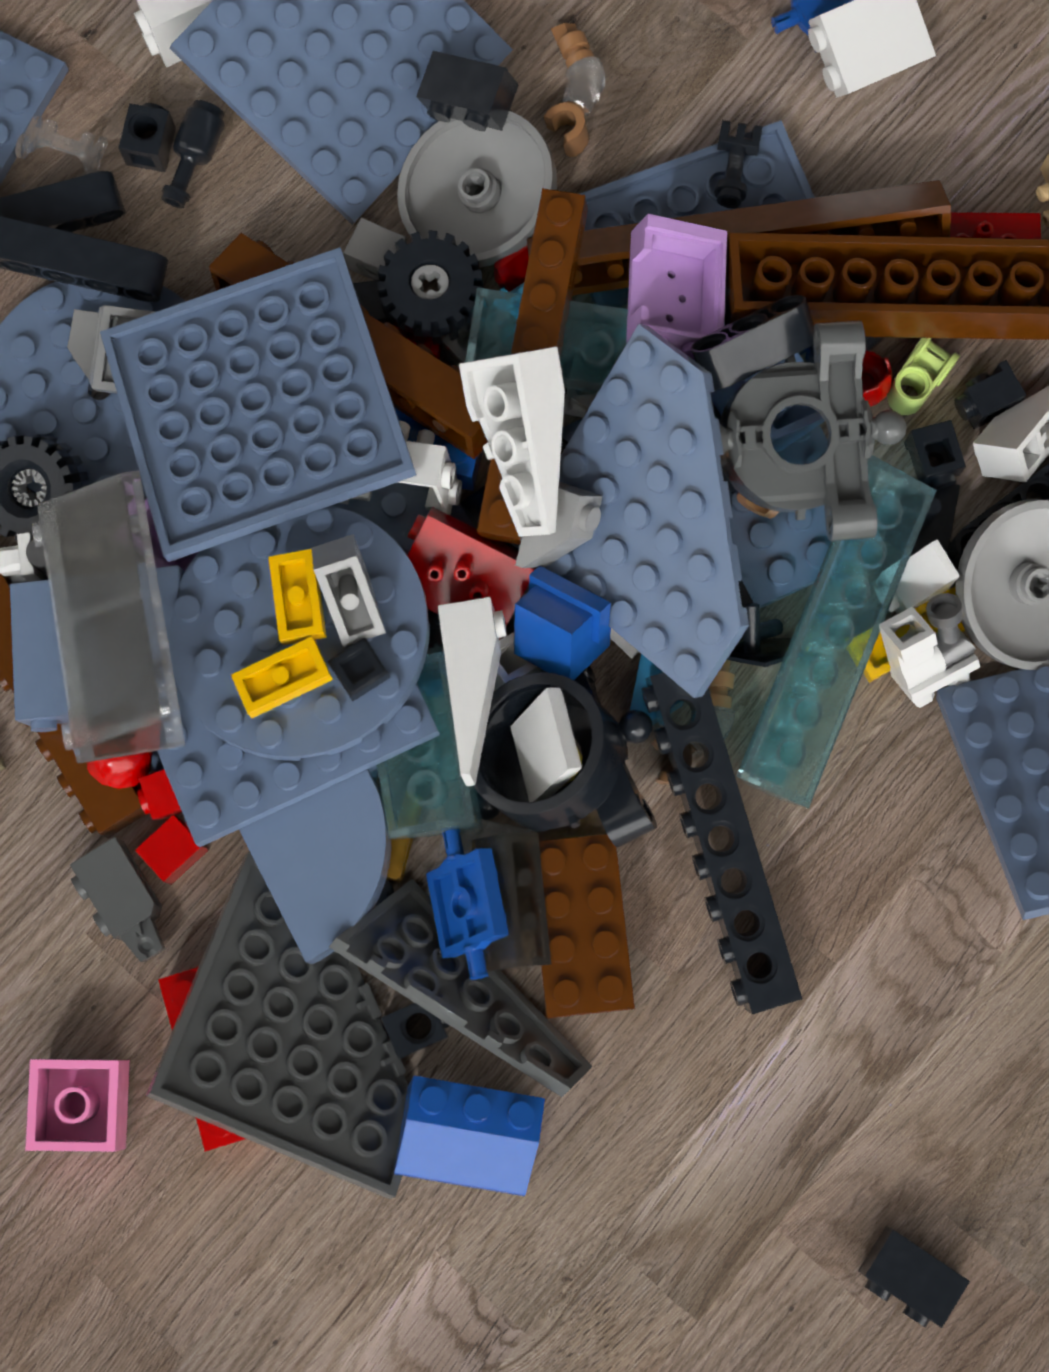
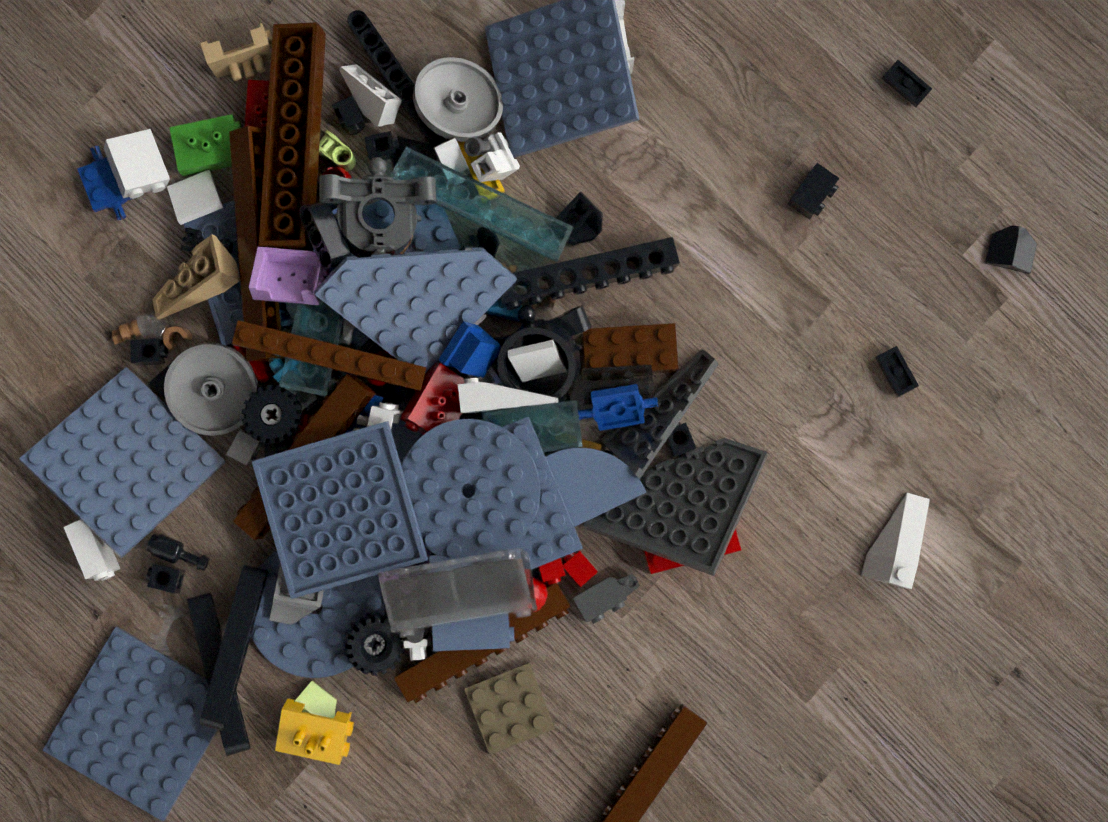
camera: 90 degrees left, 5 degrees up
(77, 1105) = (714, 619): bright pink brick -> none
(281, 677) = (497, 496): yellow plate -> none
(296, 597) = (453, 487): yellow plate -> none
(347, 590) = (451, 459): light grey slope -> none
(358, 669) = (495, 455): black tile -> none
(467, 91) = (156, 390): black brick -> none
(469, 1135) = (737, 412): slope -> none
(522, 417) = (361, 360): white wedge -> none
(535, 67) = (139, 347): none -> black brick
(575, 522) = (415, 346): light grey slope -> none
(674, 160) = (202, 277): none -> tan wedge
(819, 140) = (194, 197): none -> white tile
(827, 828) = (584, 218): none -> black slope
(915, 142) = (203, 144): none -> bright green piece

